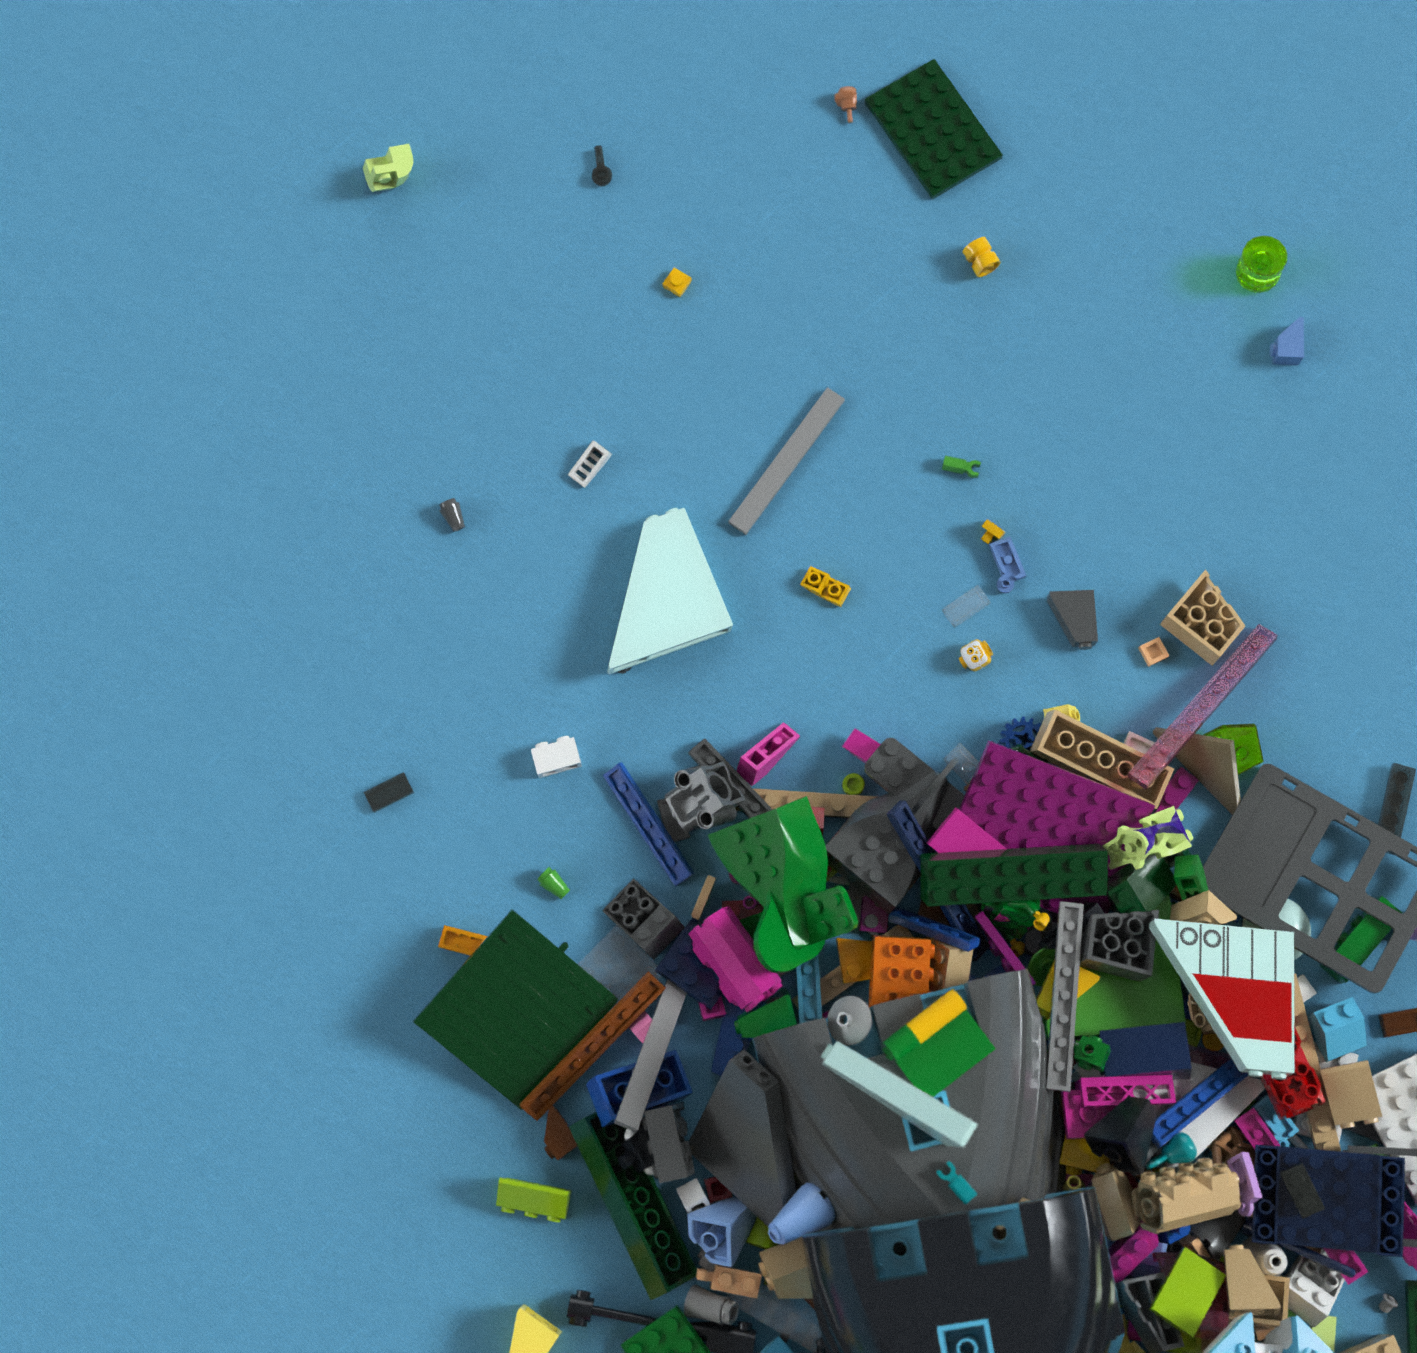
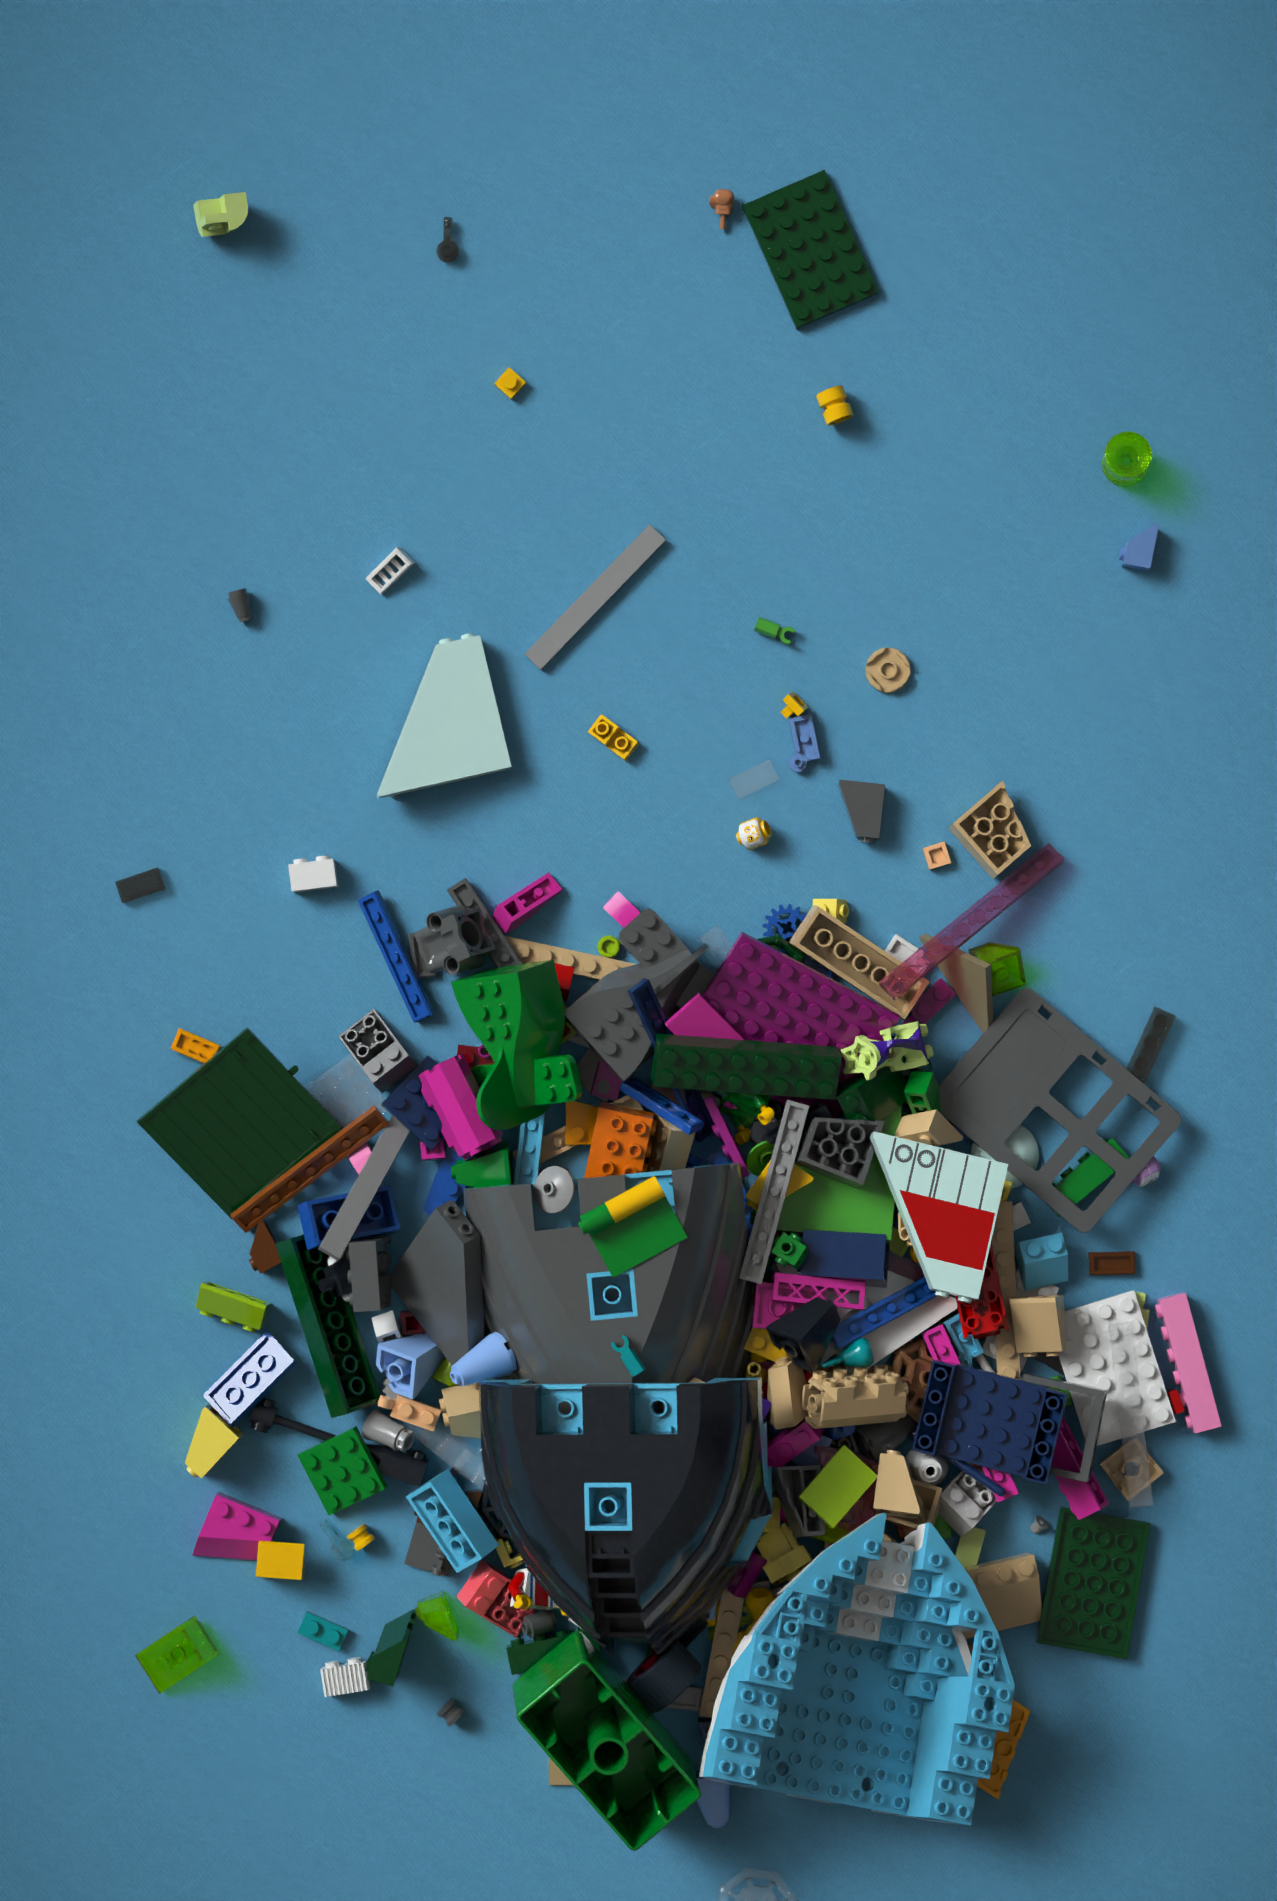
camera: 10 degrees right, 10 degrees up
(553, 883) = (293, 1001): bright green cone -> none
(561, 1272) = (250, 1378): none -> plate
(703, 897) = (440, 1039): tan tile -> none
(899, 1096) = (581, 1268): light aqua slope -> none
(1074, 487) = (887, 670): none -> tan tile
(1194, 1244) = (859, 1445): light nougat tile -> none
(1248, 1183) = (916, 1397): lavender hinge -> none
(1302, 1190) = (967, 1409): pearl dark grey brick -> none

